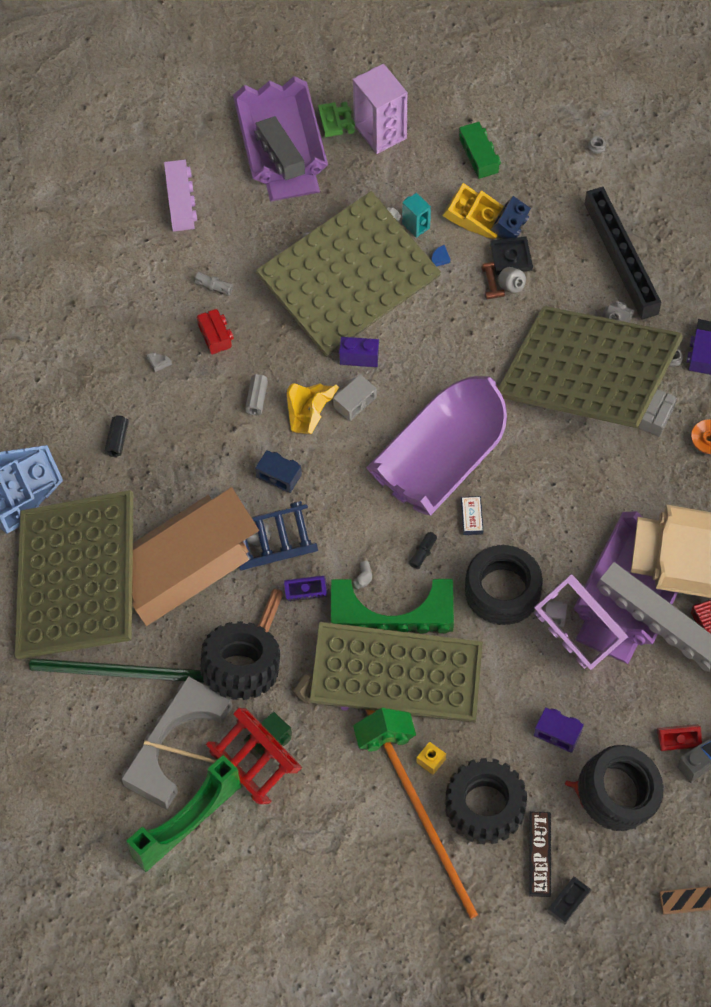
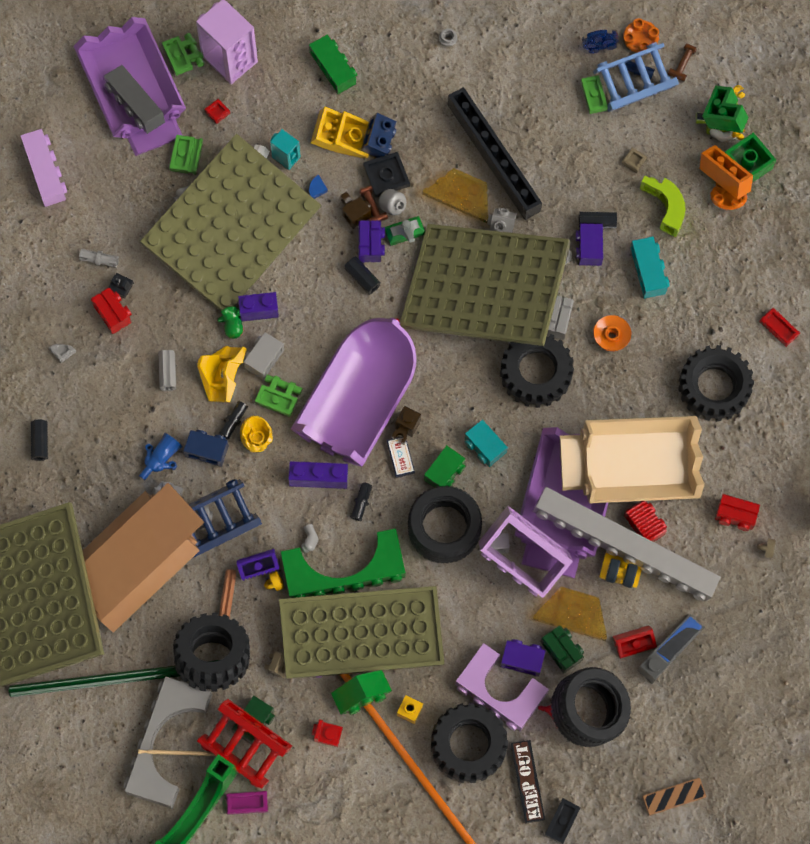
camera: 15 degrees left, 10 degrees up
(228, 472) = (157, 457): none -> blue piece
(230, 310) = (121, 285): none -> black tile
(244, 818) = (247, 802): none -> magenta tile
(312, 450) = (233, 420): none -> black pin
(319, 206) = (186, 154): none -> bright green plate
(319, 609) = (276, 581): none -> yellow tile
(331, 365) = (233, 325): none -> green animal
(331, 467) = (255, 434): none -> yellow hair
(340, 765) = (327, 733): none -> red bracket
(358, 174) = (217, 111): none -> red tile
(359, 441) = (275, 400): none -> bright green plate
(385, 516) = (318, 475): none -> dark purple brick
(468, 341) = (362, 275): none -> black axle
(473, 282) = (355, 210): none -> dark brown brick
(482, 312) = (370, 241): none -> dark purple brick
(484, 484) = (406, 424): none -> dark brown brick
(515, 531) = (445, 468): none -> green brick
(519, 308) = (404, 231): none -> piece
(538, 780) = (514, 712): none -> lavender arch
(561, 517) = (485, 443): none -> teal brick
(582, 284) = (461, 193): none -> clear yellow wing
(601, 727) = (562, 649): none -> dark green brick
(621, 697) = (574, 611): none -> clear yellow wing
(626, 478) = (537, 393): none -> black tyre
(676, 664) = (617, 571): none -> plate

